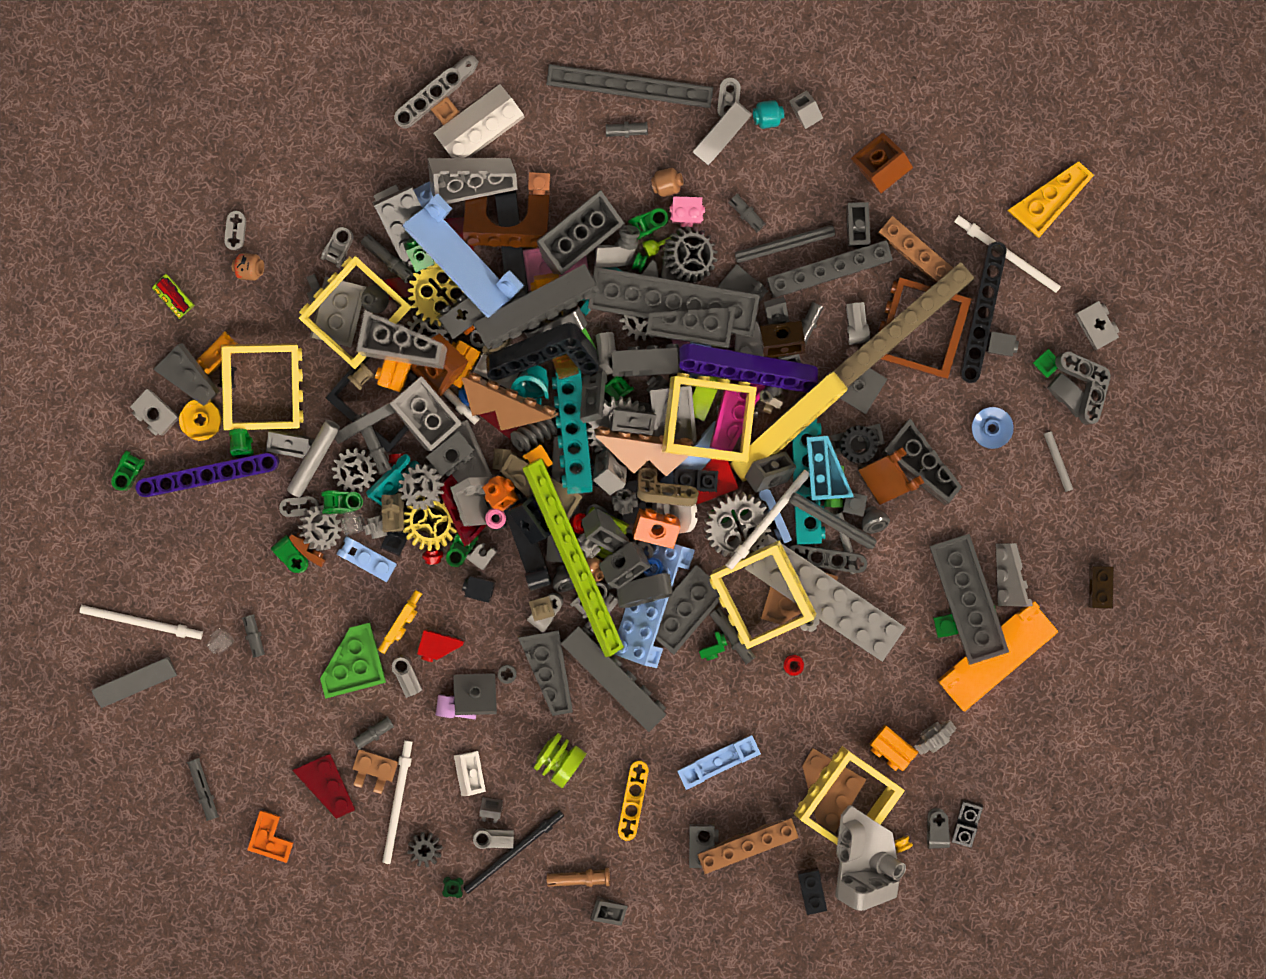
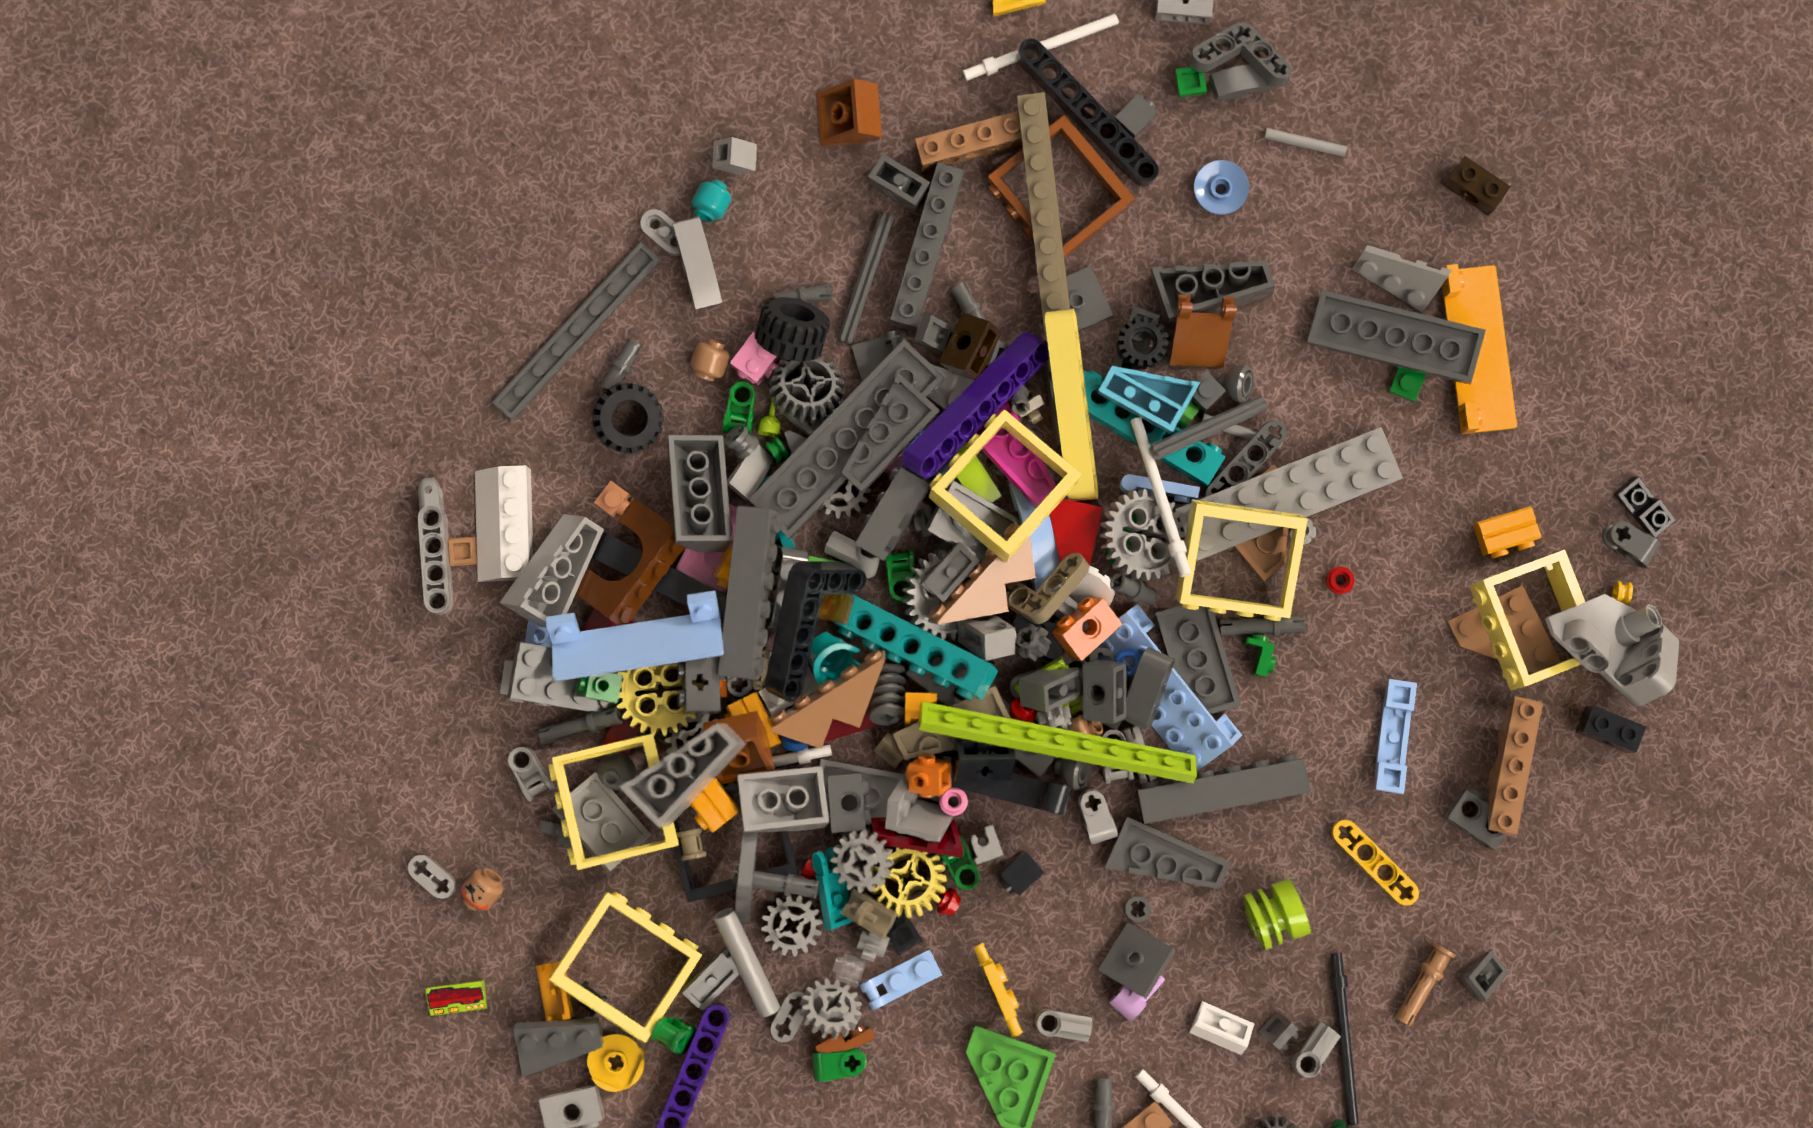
camera: 55 degrees left, 5 degrees down
(337, 502) = (814, 968): green piece -> none
(436, 645) = (1053, 965): red slope -> none
(541, 608) = (1090, 817): dark tan tile -> none
(589, 173) = (651, 422): none -> black tyre
(593, 397) = (892, 599): dark grey plate -> none
(699, 479) = (1064, 542): black slope -> none
(700, 541) = (1134, 589): none -> dark grey pin
(719, 221) = (792, 329): none -> black tyre
(770, 472) = (1108, 459): dark grey brick -> none
(857, 325) = (1011, 260): light grey piece -> none
(935, 737) = (1526, 476): light grey gear -> none

